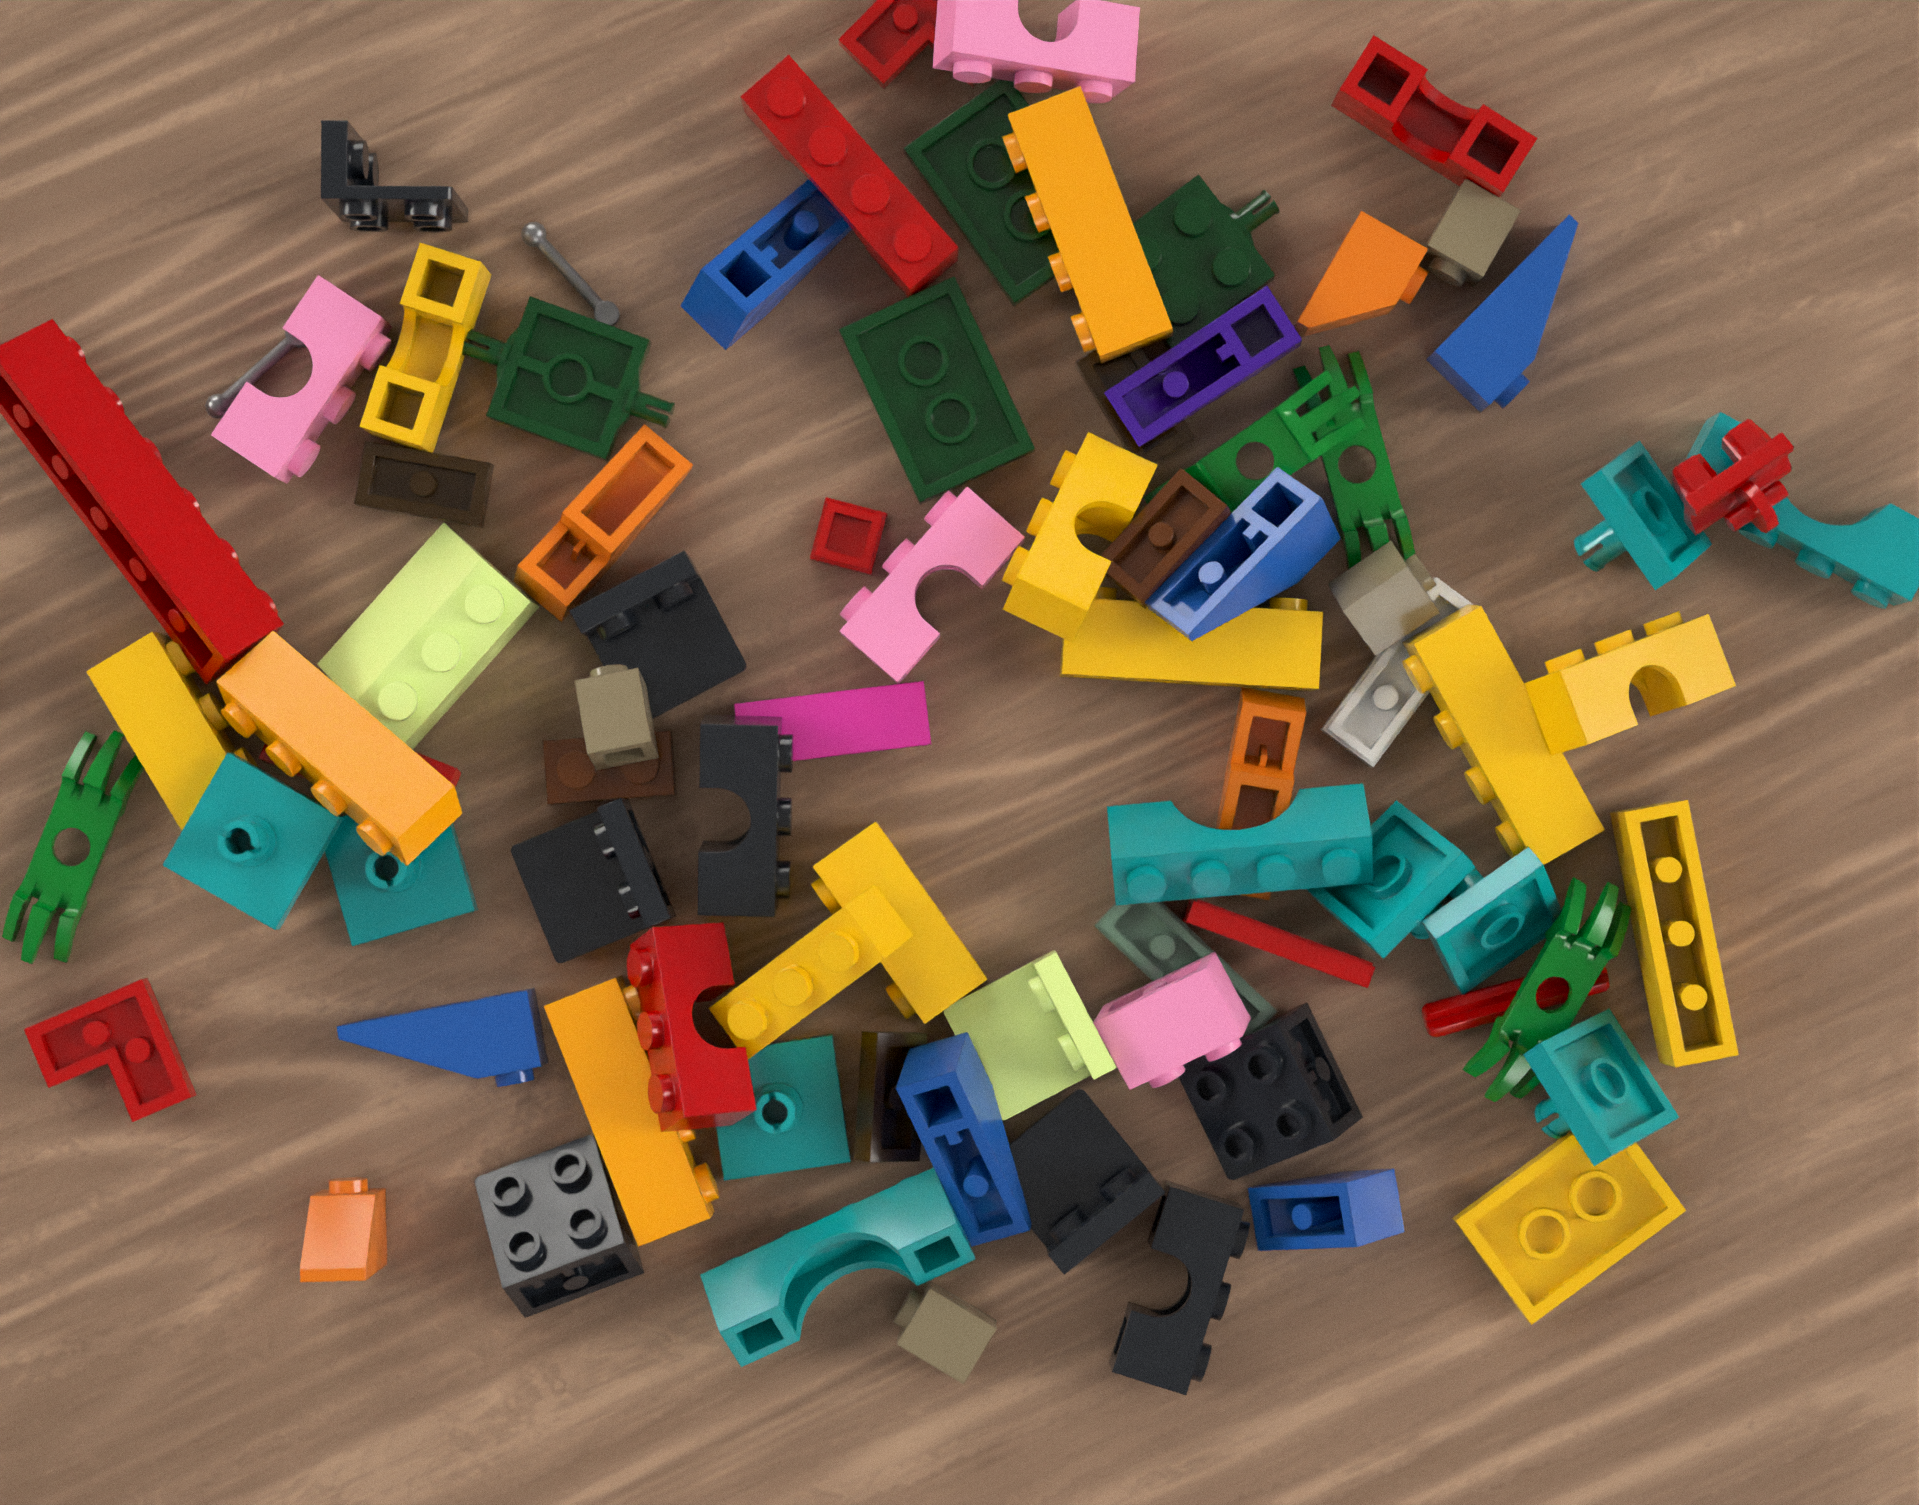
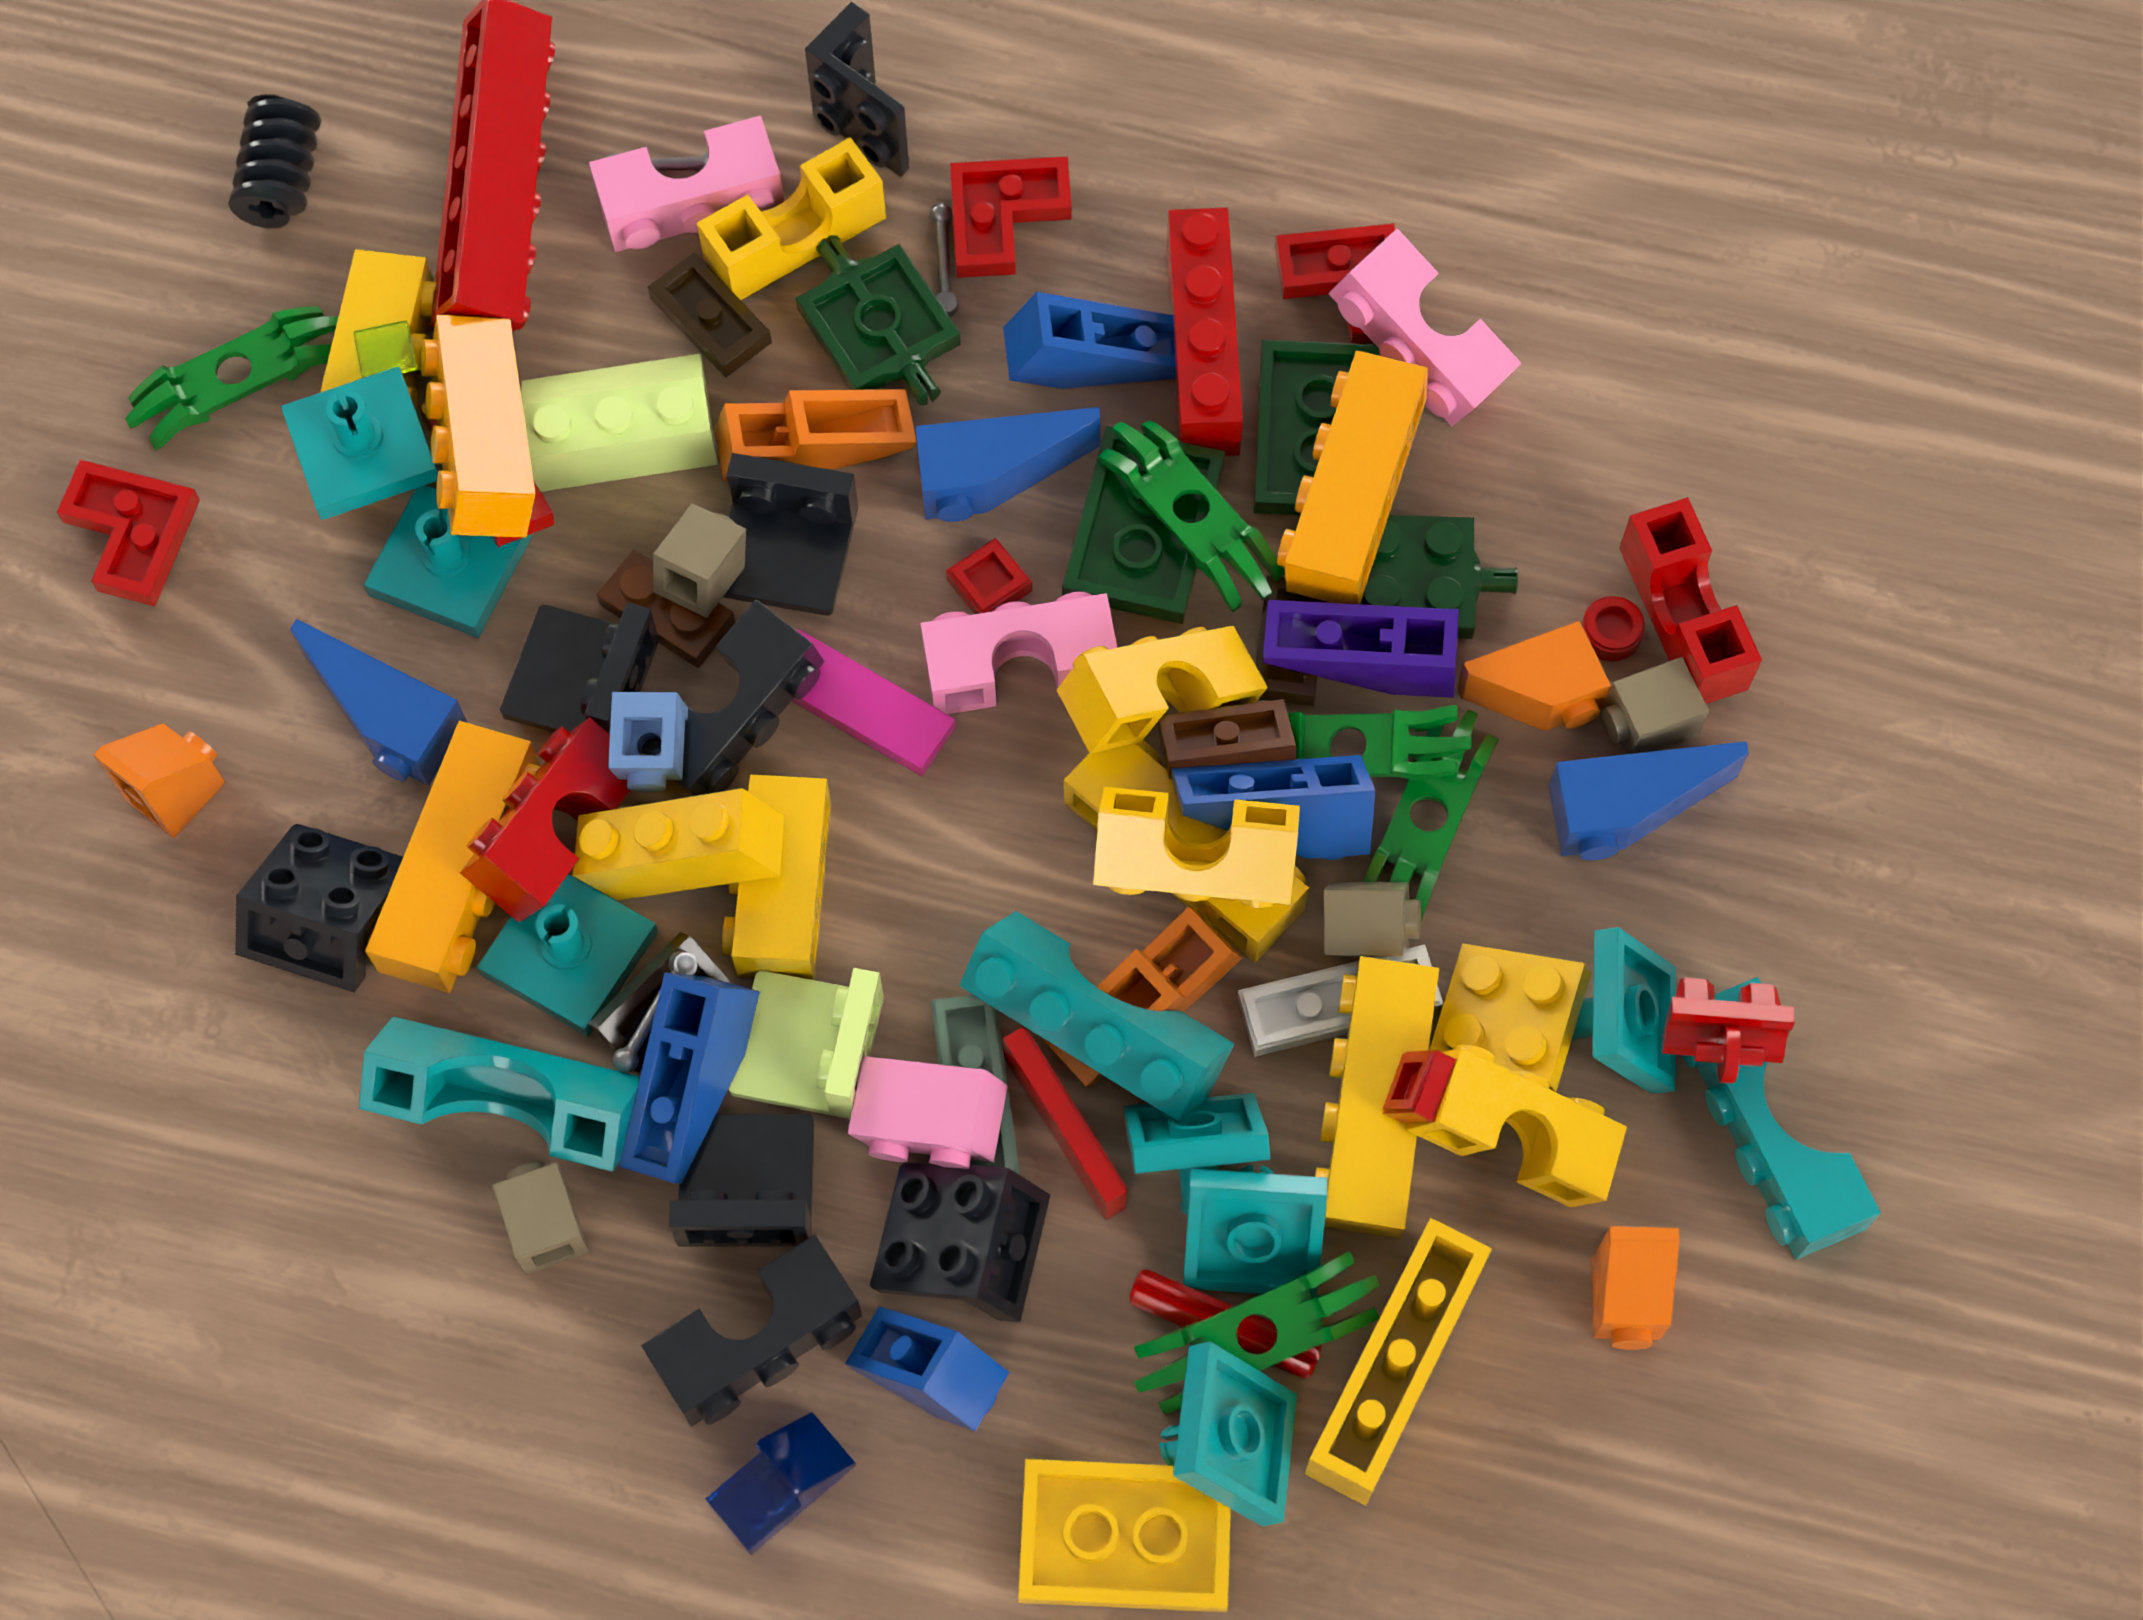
camera: 45 degrees right, 20 degrees down
(198, 743) = (385, 348): none -> clear neon green piece
(568, 189) = (996, 195): none -> red plate
(717, 938) = (636, 720): none -> medium blue brick
(765, 440) = (990, 460): none -> blue slope
(892, 1060) = (626, 1058): none -> flat silver hinge
(934, 346) = (1208, 540): none -> green piece
(1269, 642) = (1144, 853): none -> yellow arch
(1285, 1374) = (780, 1481): none -> clear blue slope
(1378, 182) = (1614, 627): none -> red tile
(1544, 720) = (1418, 1086): none -> red tile
(1549, 589) = (1514, 1008): none -> yellow plate
(1803, 736) = (1634, 1285): none -> orange slope

